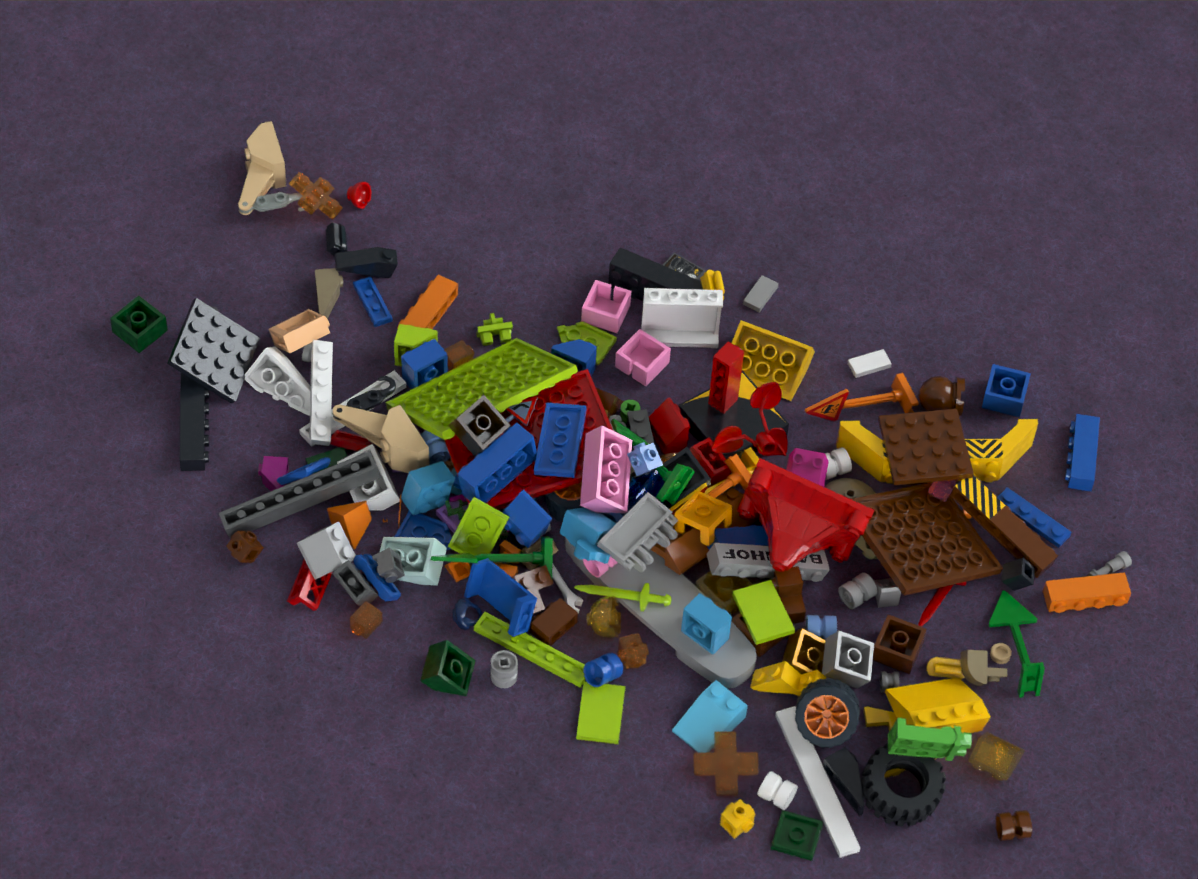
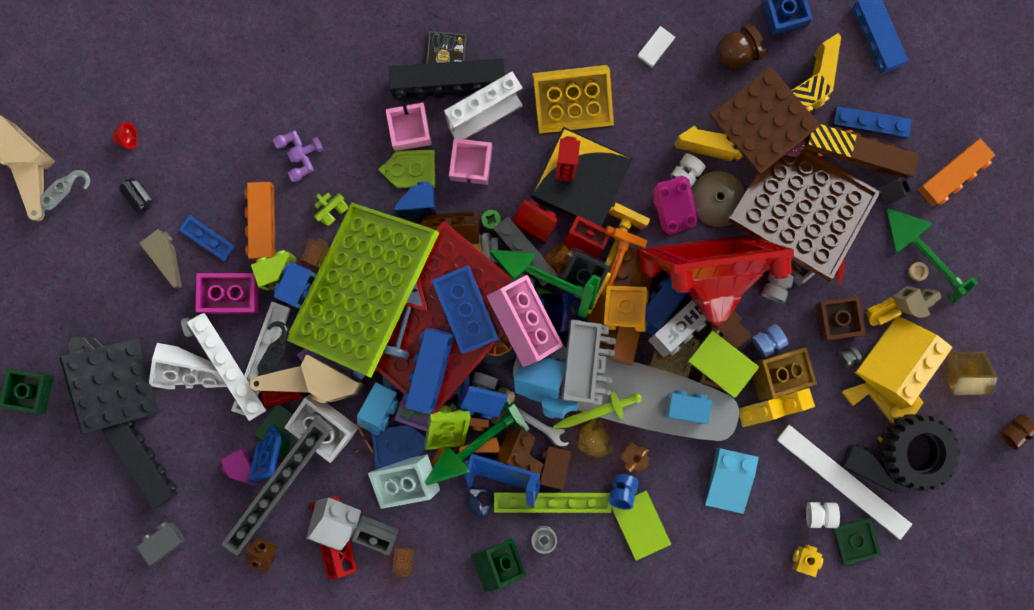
camera: 25 degrees left, 30 degrees up
(164, 494) = (161, 543): none -> dark grey brick
(299, 331) = (159, 309): light nougat window -> none
(315, 195) = (89, 164): clear orange plate -> none
(353, 519) = (332, 474): orange slope -> none
(361, 344) = (227, 293): none -> dark pink brick
(370, 261) = (178, 206): black slope -> none
(385, 590) = (388, 516): blue hinge -> none
(389, 565) = (393, 504): flat silver brick -> none
(479, 425) = (395, 352): dark brown brick -> none
(496, 280) = (298, 153): none -> medium lavender piece
(644, 458) = (550, 290): medium blue brick -> none
(712, 281) = (493, 61): yellow piece -> none
(725, 763) = (768, 515): clear orange plate -> none
(760, 293) = (525, 28): light grey tile -> none
(768, 442) = (630, 198): red plant -> none
(827, 712) = (827, 428): wheel -> none
(832, 406) = (702, 64): orange piece -> none
(848, 659) = (812, 363): light grey brick -> none
(927, 741) = (935, 424): bright green hips -> none
(1121, 560) = (965, 123): light grey piece -> none

